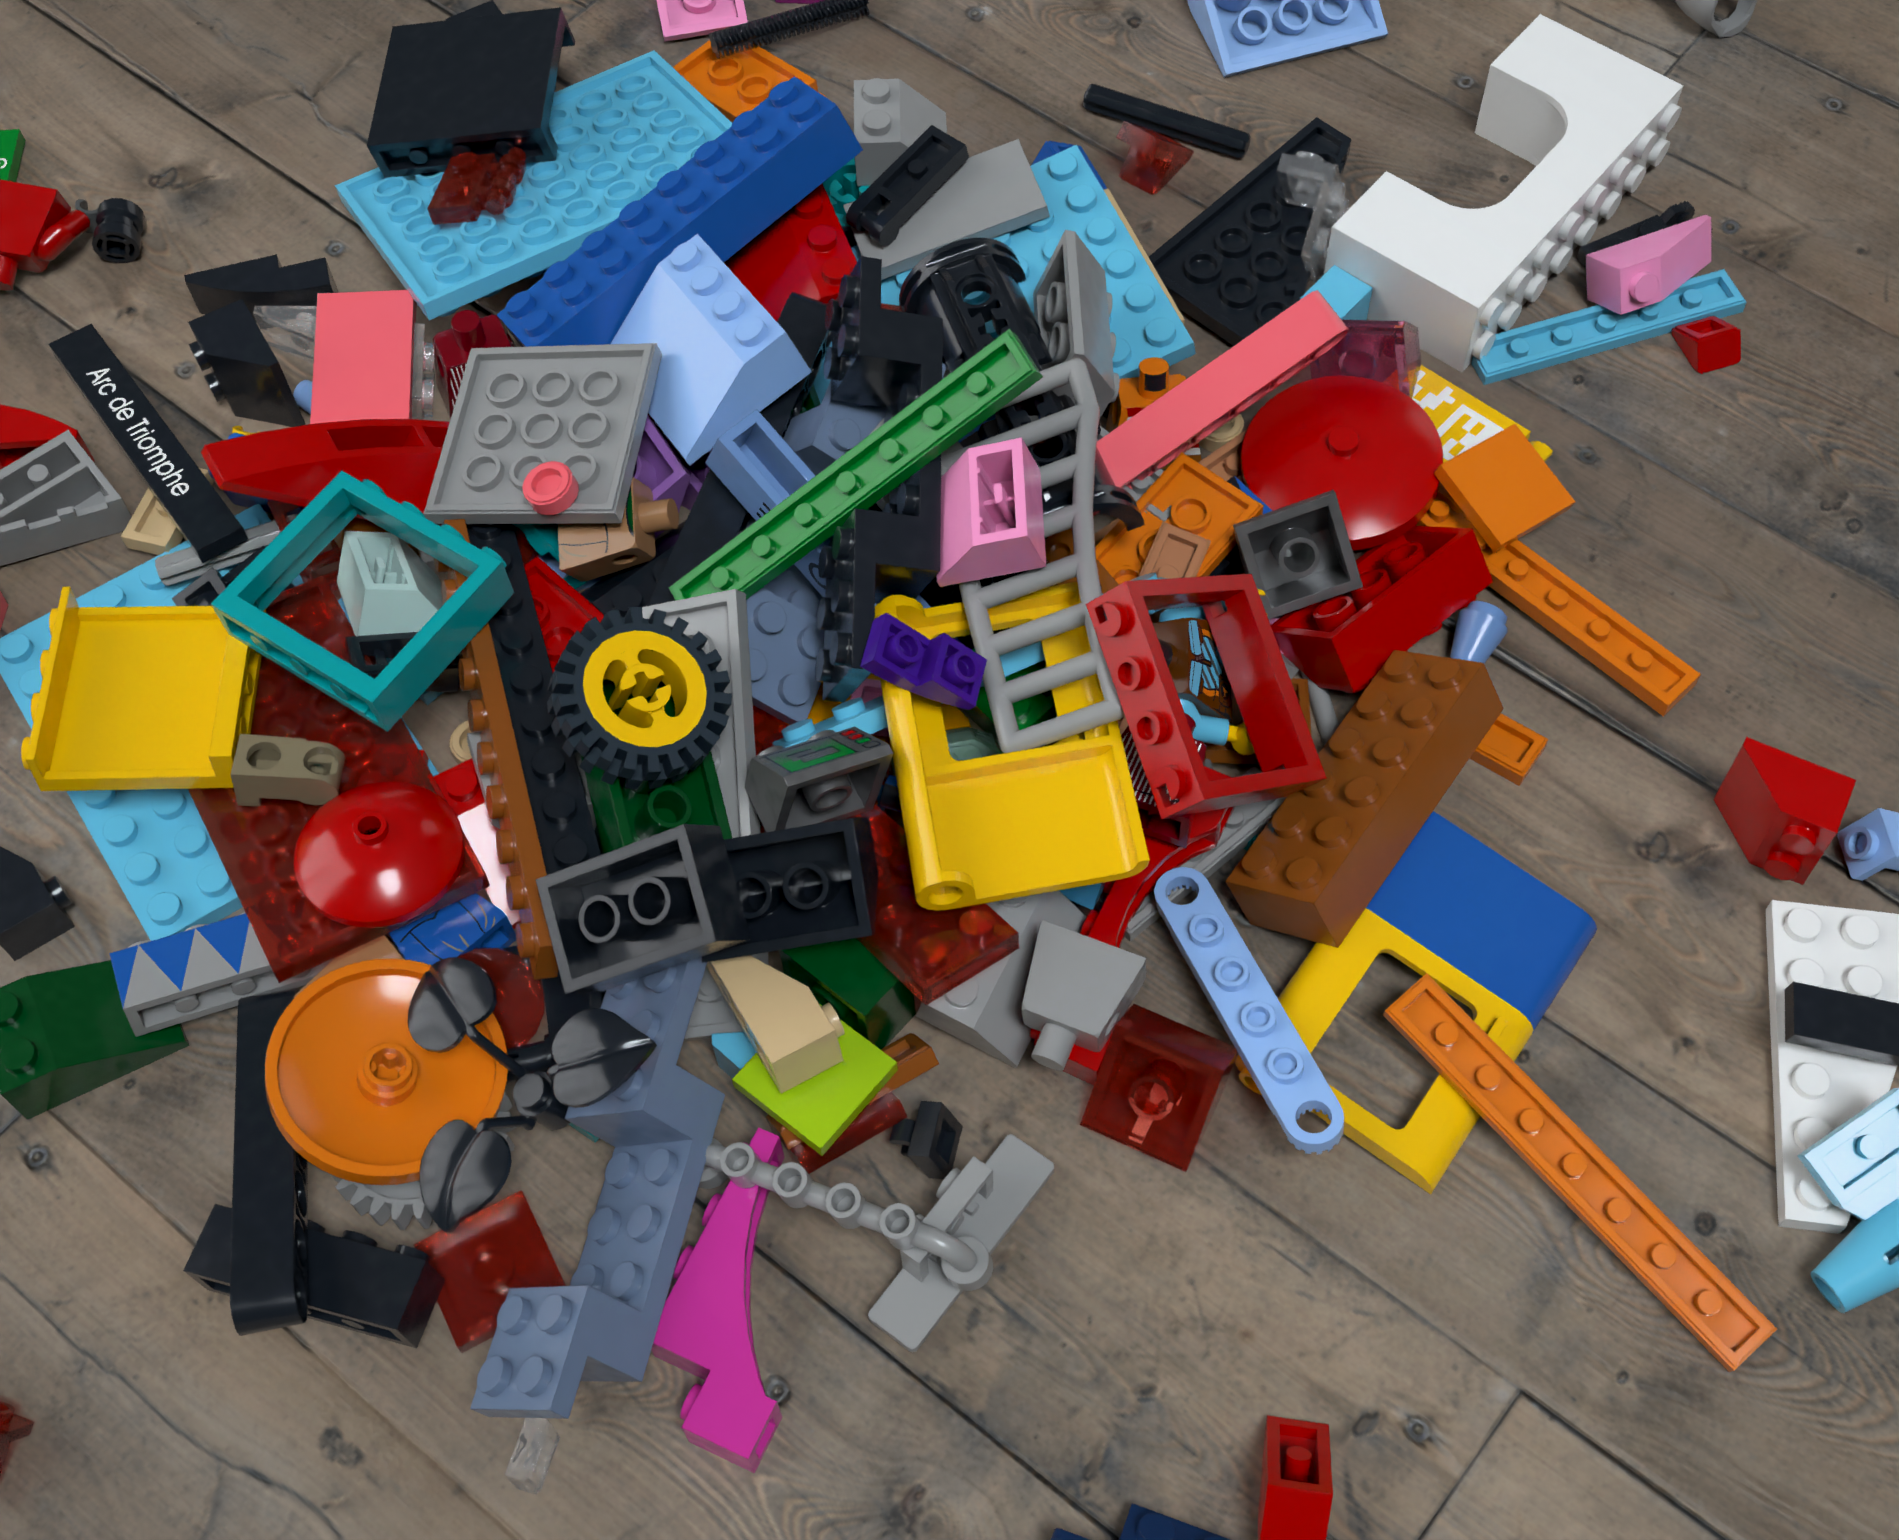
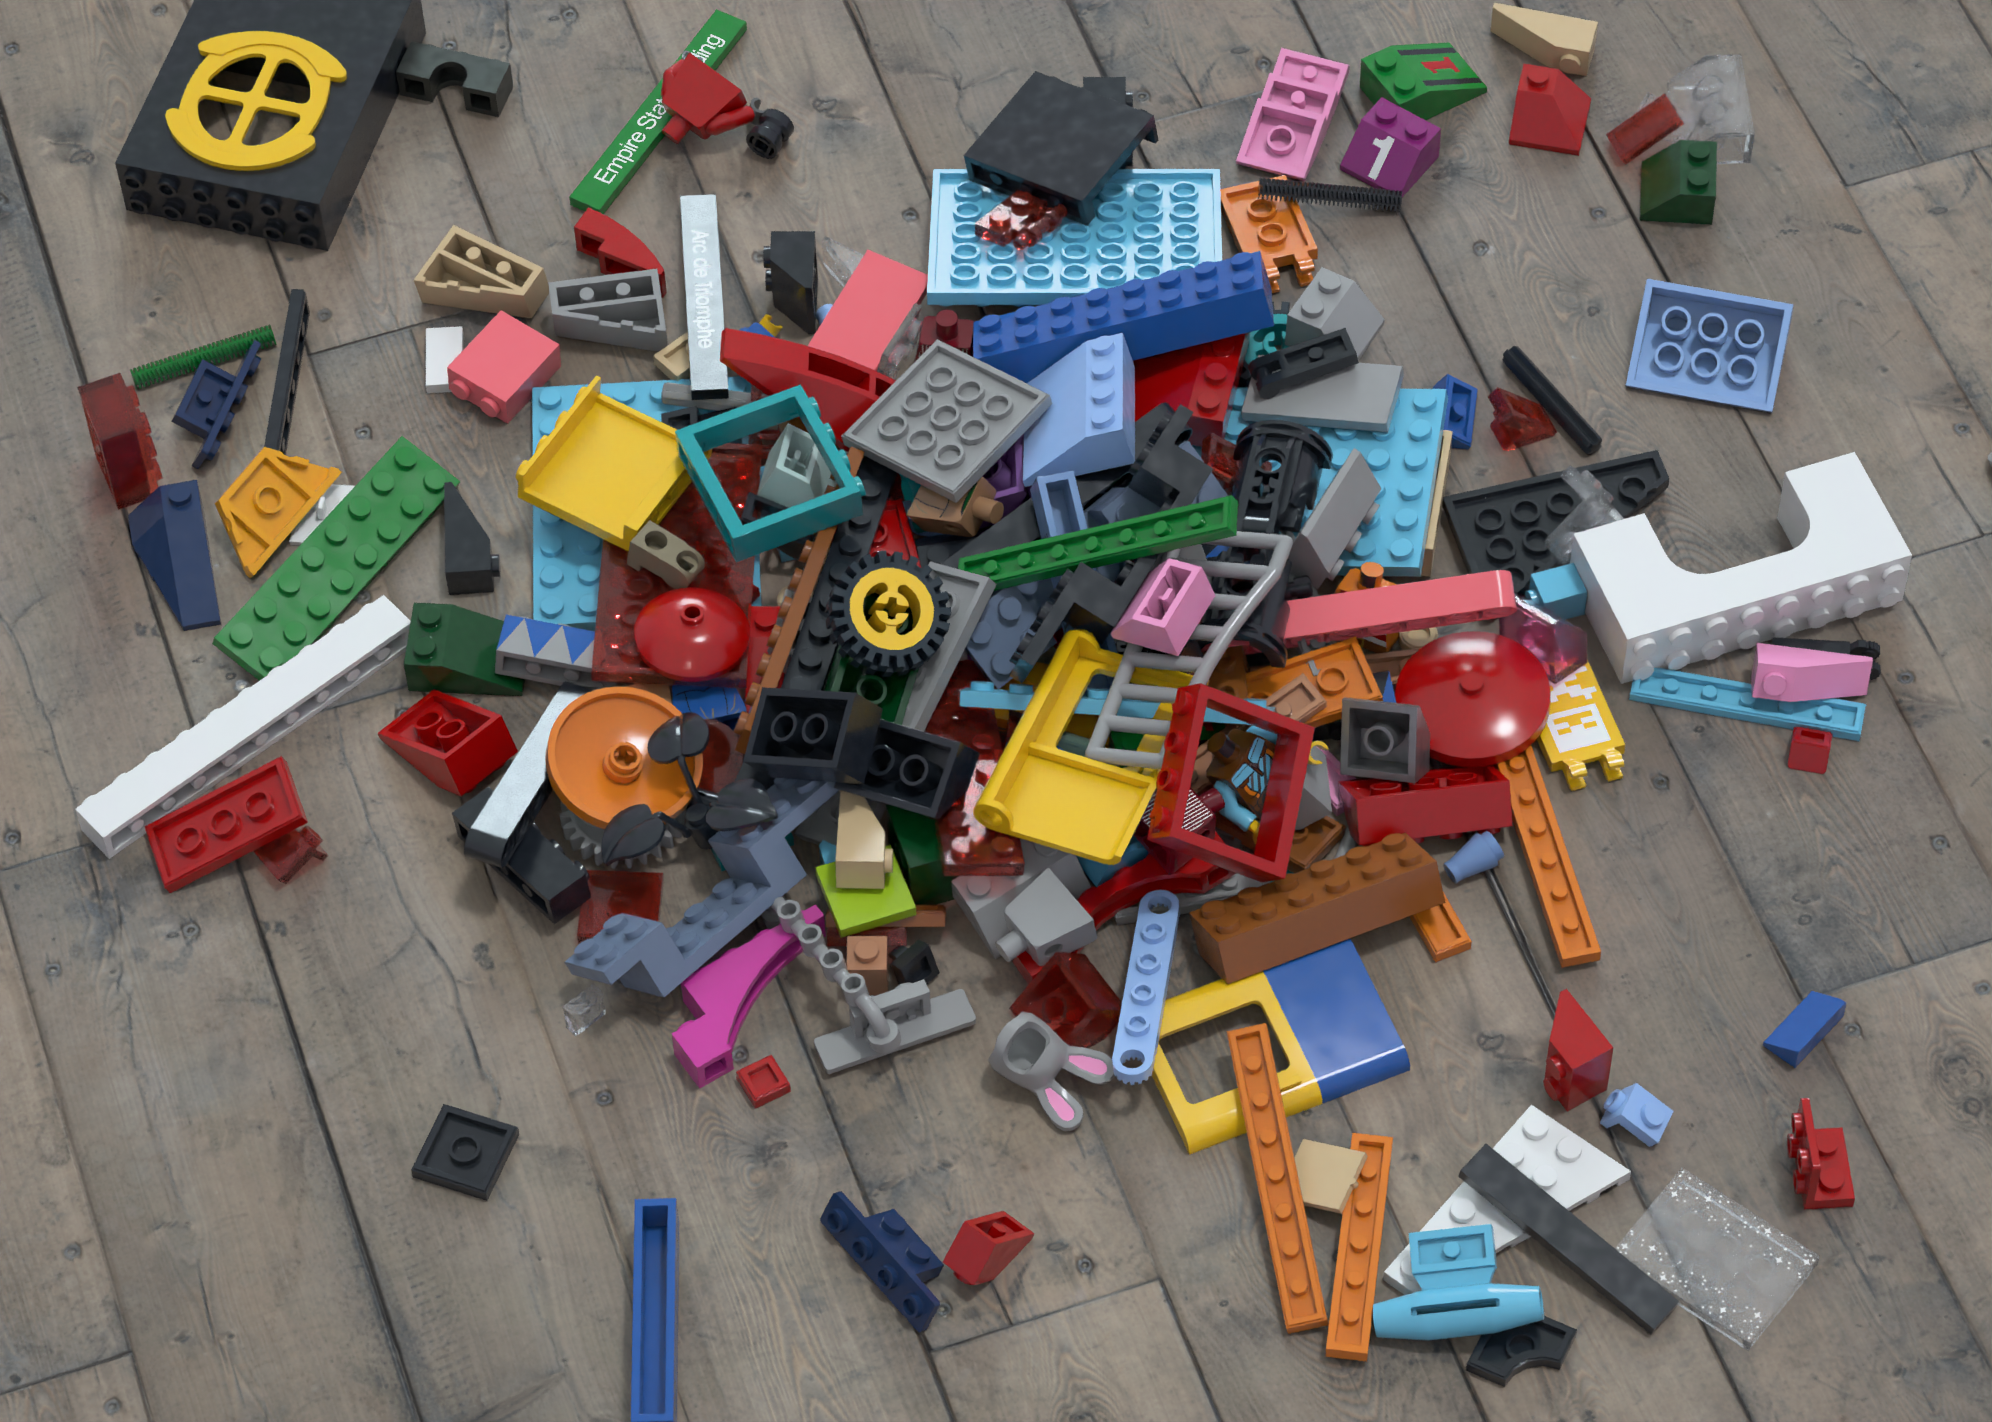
camera: 30 degrees right, 5 degrees down
(123, 1163) = (450, 741): none -> red slope
(261, 284) = (842, 223): black slope -> none
(550, 488) = (924, 458): coral tile -> none
(818, 779) = (967, 716): flat silver slope -> none
(836, 1414) = (763, 1081): none -> red tile
(875, 1167) = (870, 959): none -> nougat brick
(931, 668) = (1066, 679): dark purple slope -> none
(1170, 1181) = (1033, 1055): none -> light grey piece
(1504, 487) = (1564, 769): orange tile -> none
(1628, 1125) = (1327, 1174): none -> tan piece
(1735, 1207) = (1359, 1252): none -> orange plate

